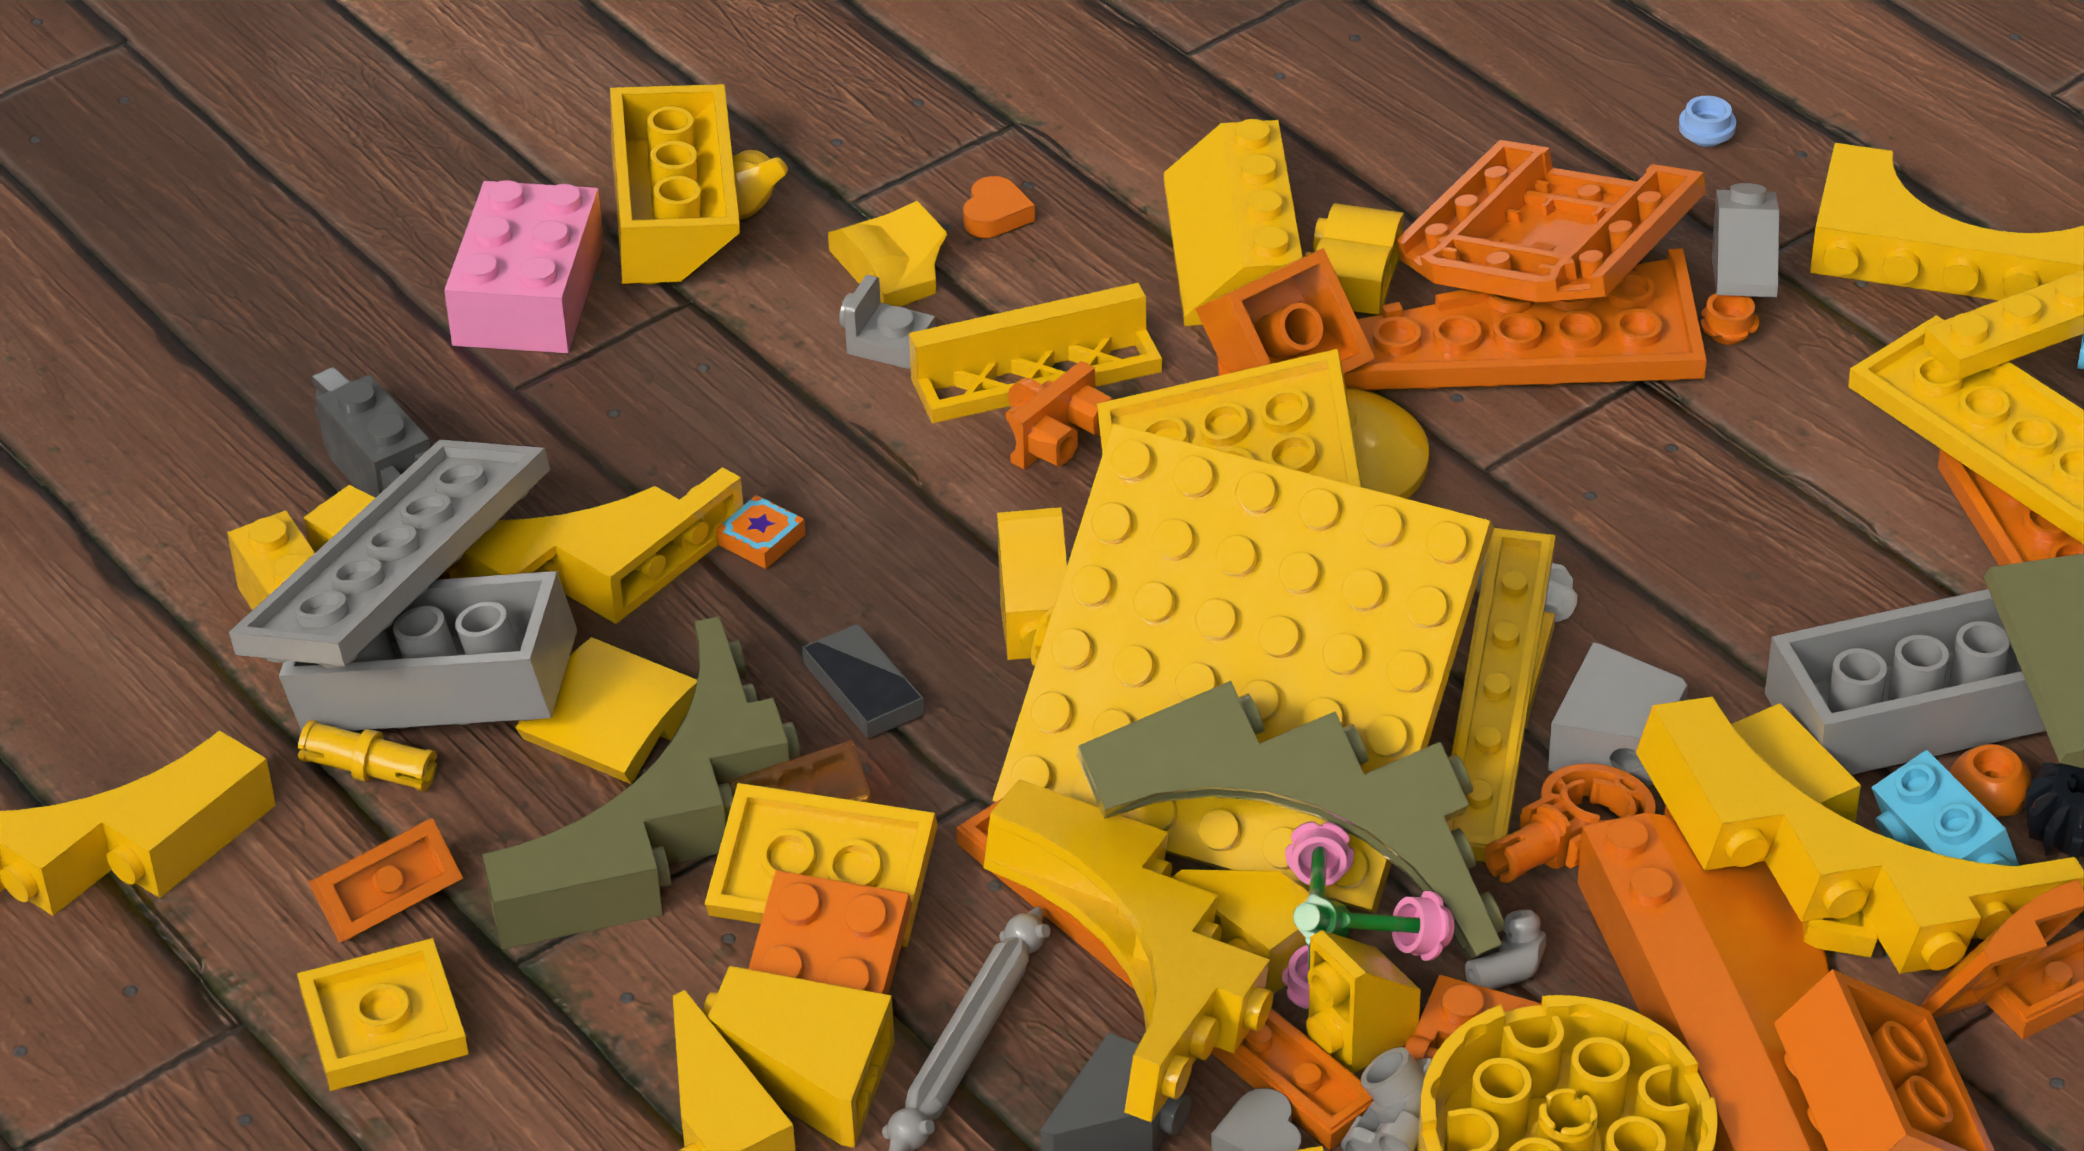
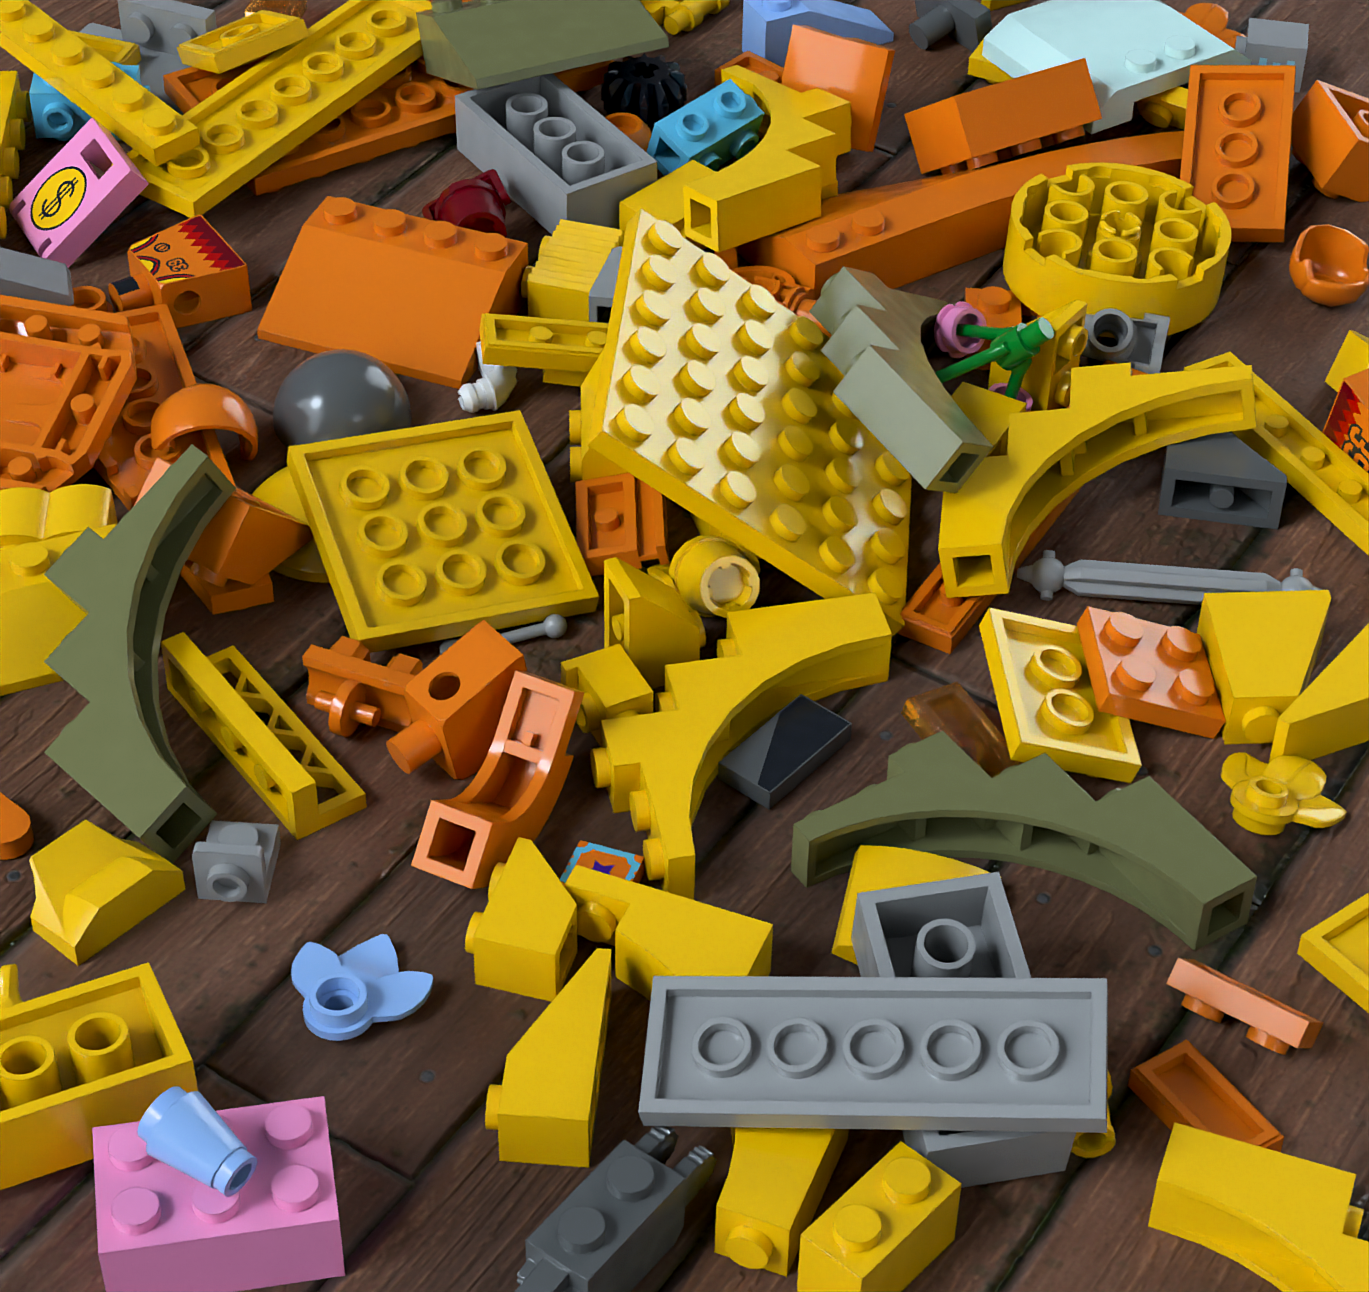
camera: 110 degrees left, 0 degrees up
(306, 837) = (1192, 1092): none -> orange tile
(523, 203) = (196, 1141): none -> light blue cone
(581, 465) = (555, 1075): none -> yellow slope
(630, 1016) = (1278, 793): none -> yellow plate
(702, 444) = (527, 929): none -> yellow slope
(714, 374) = (355, 988): none -> light blue plate
(848, 466) = (512, 789): none -> orange arch
(918, 622) = (710, 706): none -> yellow arch
(961, 566) = (610, 686): none -> yellow brick
(972, 443) = (458, 704): none -> orange torso
(1114, 241) = (111, 657): none -> olive arch
(1473, 358) = (204, 408): none -> orange helmet
(1509, 473) = (339, 397): none -> dark grey piece
(1696, 534) = (394, 289): none -> orange slope
(1704, 661) = (567, 270): none -> yellow brick
(1766, 384) = (189, 271): none -> orange torso
(1806, 595) = (473, 204): none -> dark red piece
(1908, 306) = (68, 200): none -> bright pink container

